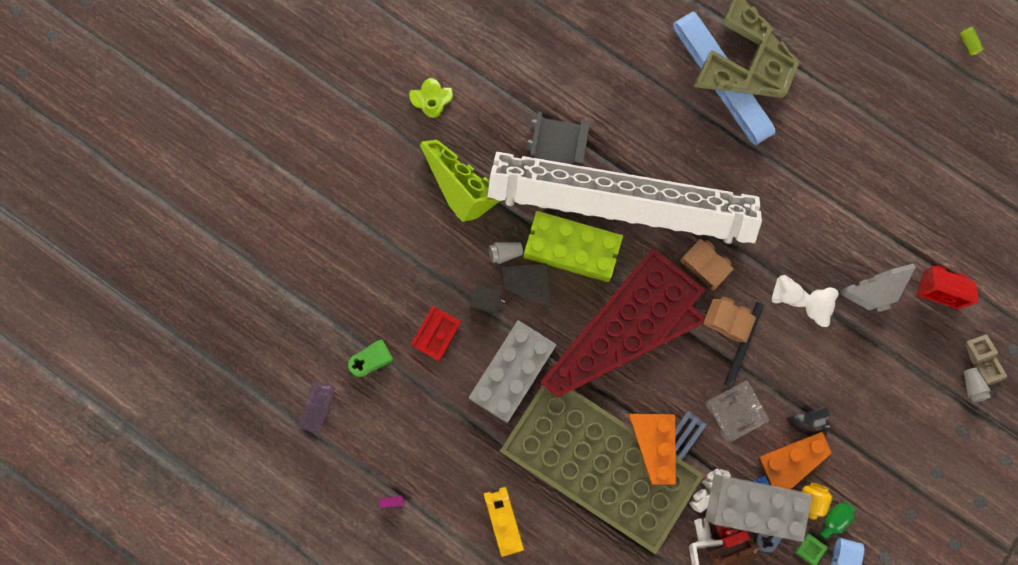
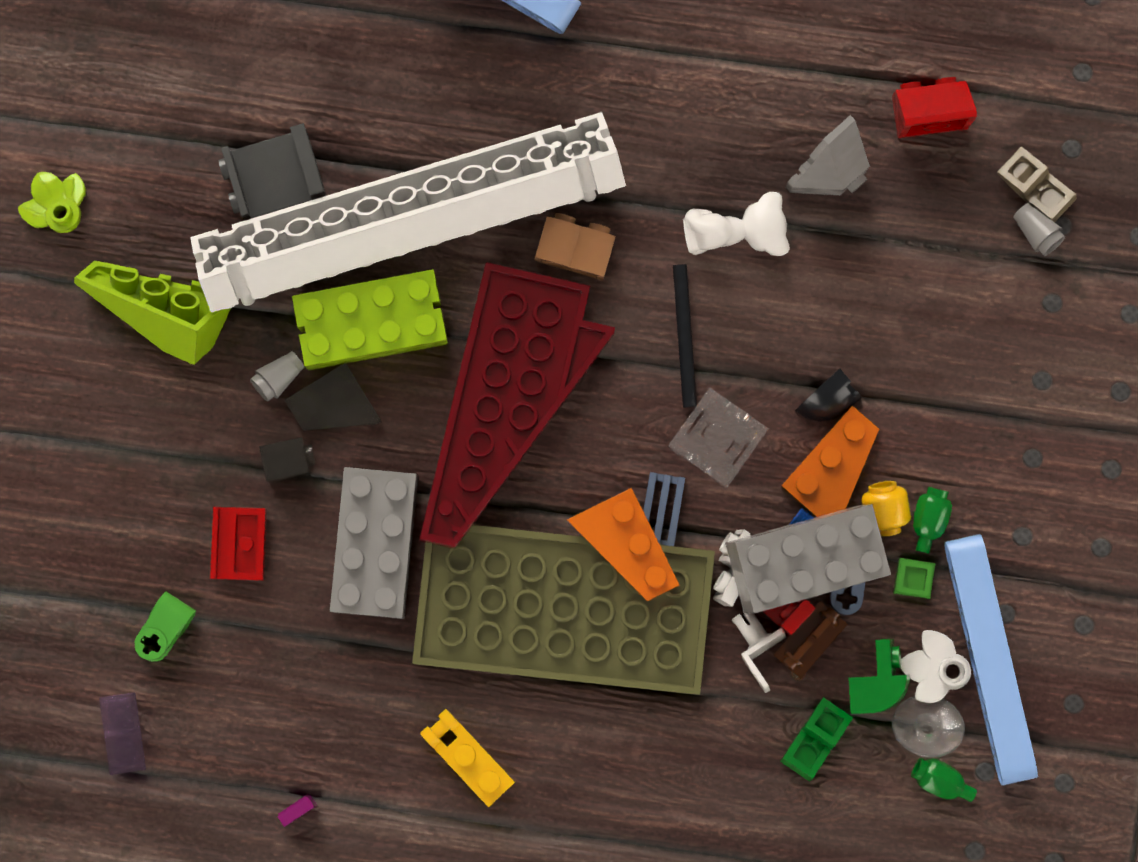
camera: 20 degrees left, 5 degrees up
(729, 319) = (645, 312): medium nougat brick -> none

